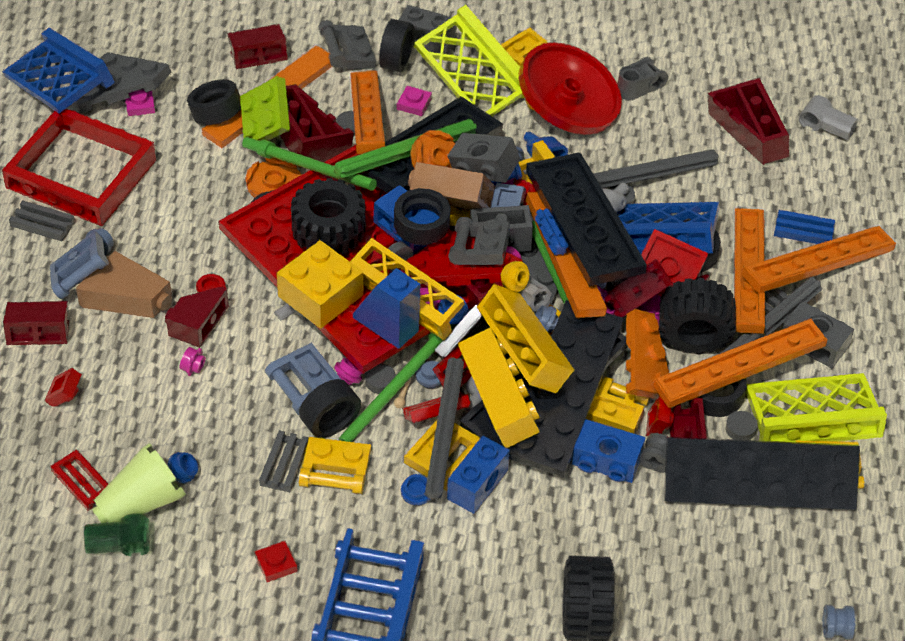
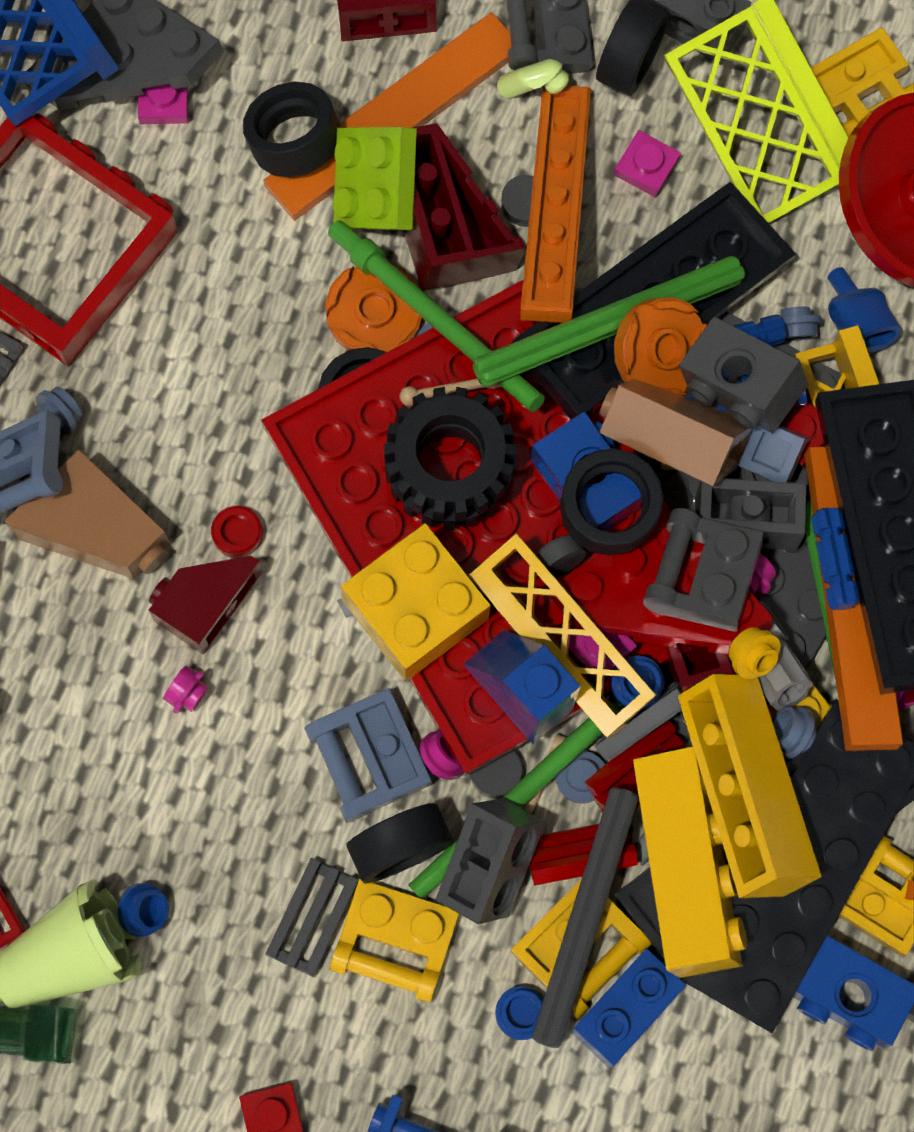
camera: 10 degrees right, 25 degrees up
(342, 66) = (532, 77): none -> yellowish green arm
(384, 407) = (490, 860): none -> dark grey brick

